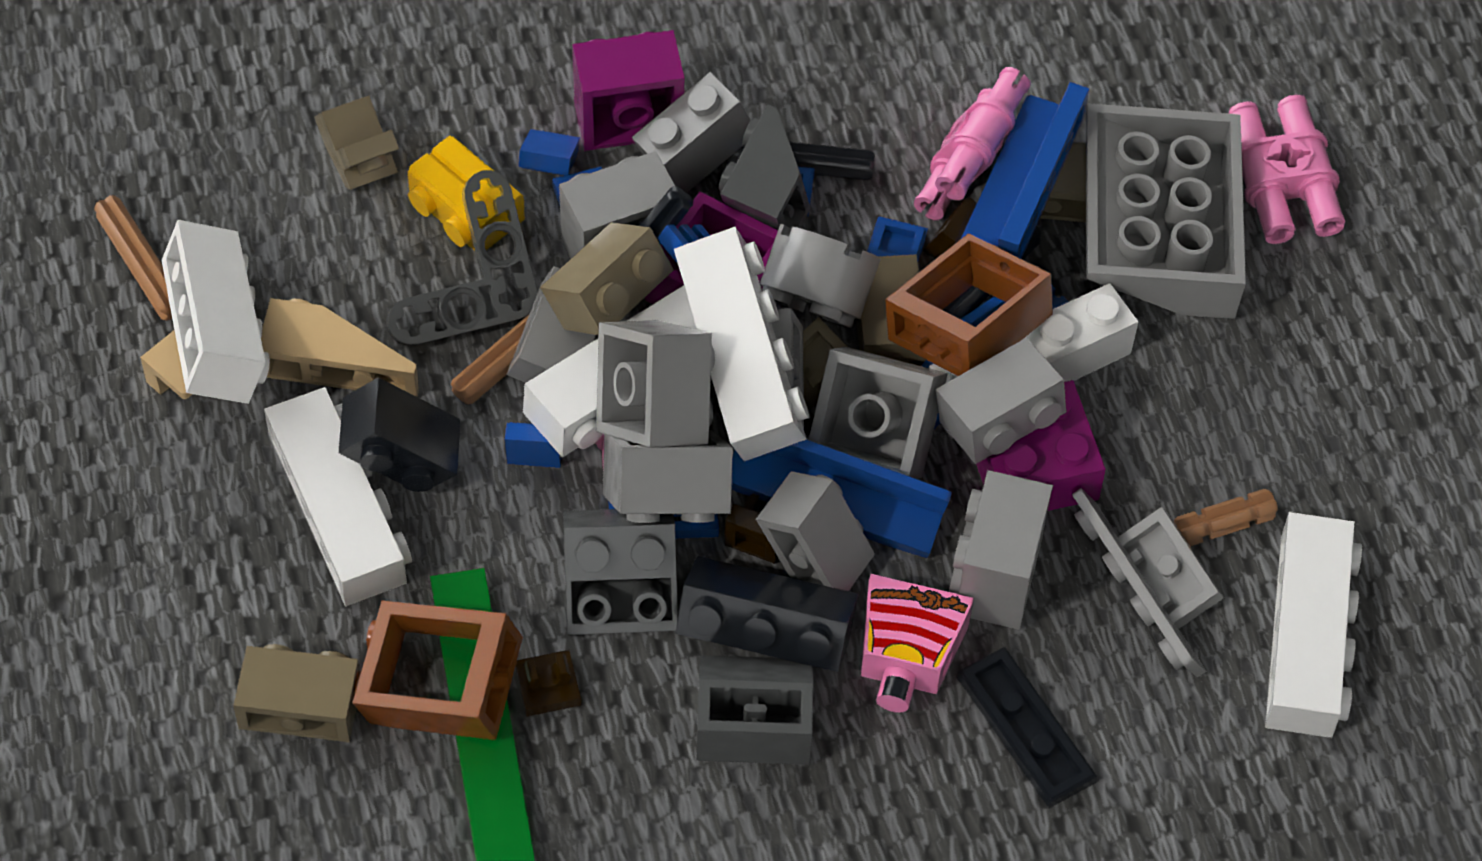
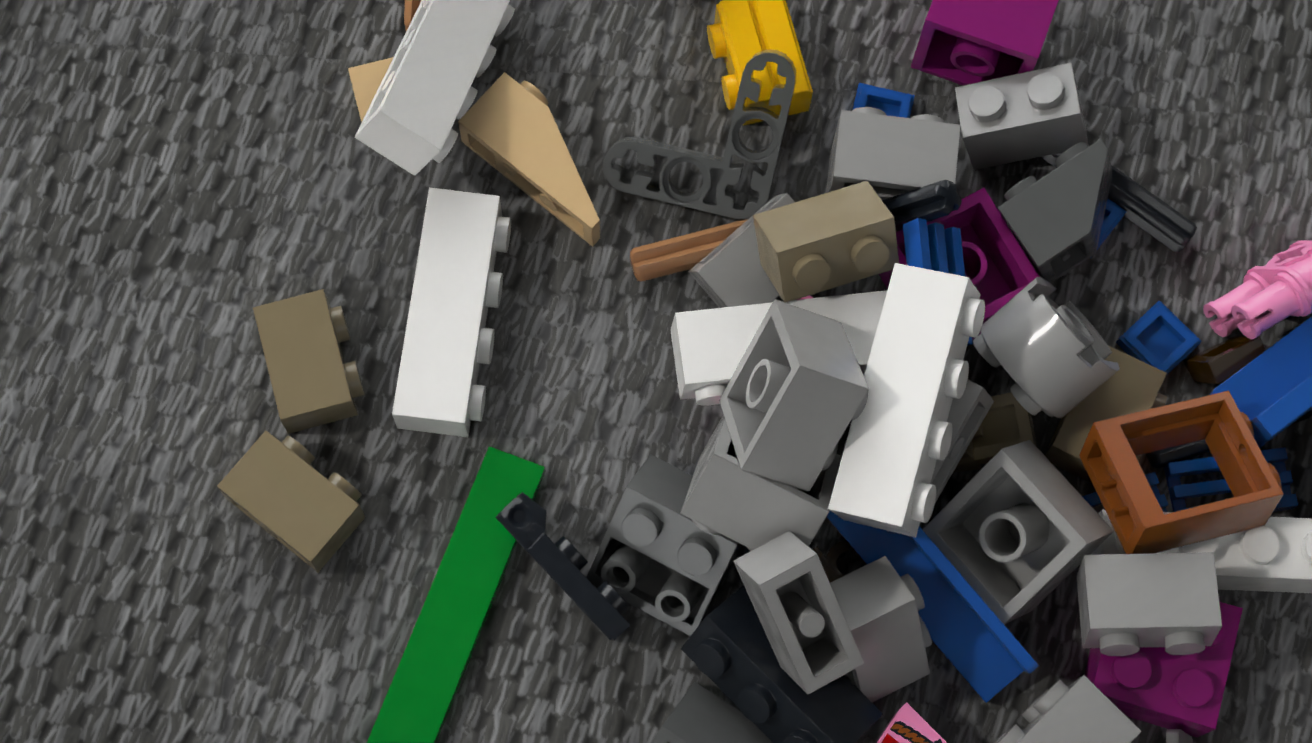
camera: 30 degrees right, 15 degrees up
(243, 587) = (307, 362): none -> dark tan brick
(399, 436) = (536, 290): black brick -> none
(487, 680) = (466, 597): dark orange window -> none
(529, 447) = (658, 359): blue tile -> none
(548, 683) = (534, 622): dark brown tile -> none
(549, 152) = (872, 52): blue tile -> none
(551, 627) = (563, 563): none -> black hinge
(753, 530) = (799, 611): none -> light grey brick

